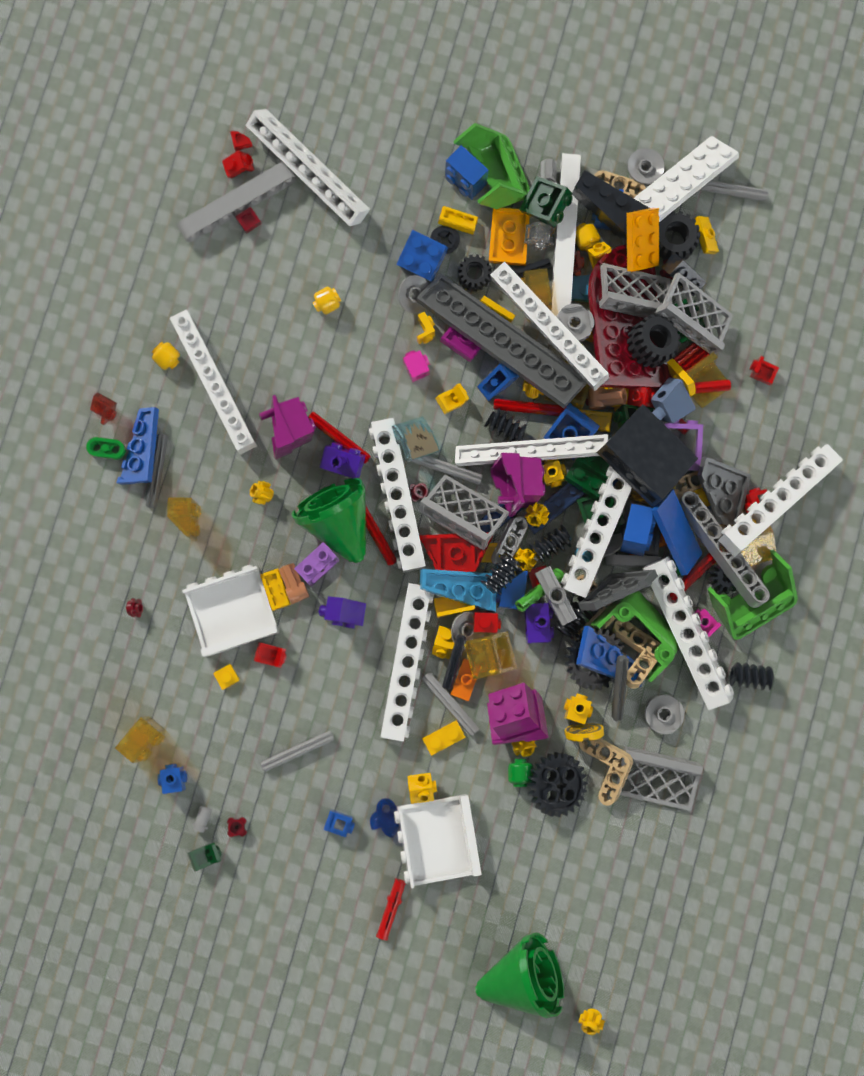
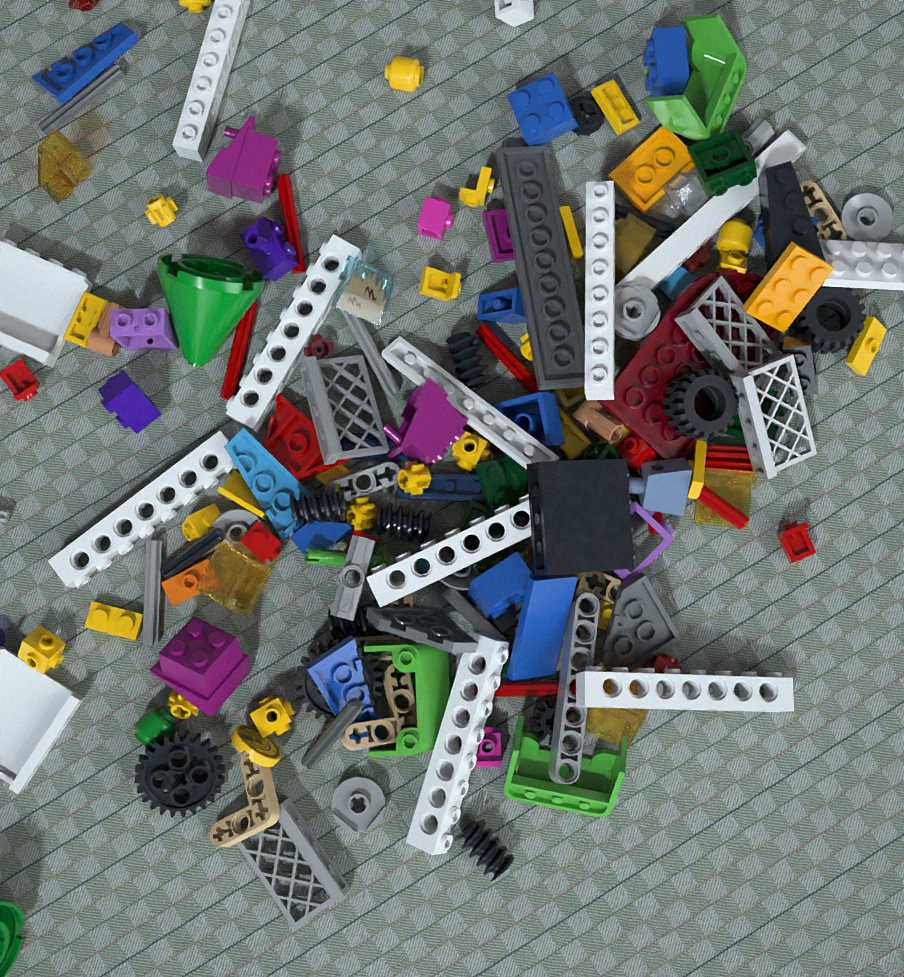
camera: 50 degrees right, 0 degrees up
(106, 448) = (53, 35): green plate -> none
(416, 285) = (486, 135): light grey dish -> none
(474, 262) = (578, 161): black tyre -> none
(538, 623) = (314, 592): dark purple brick -> none

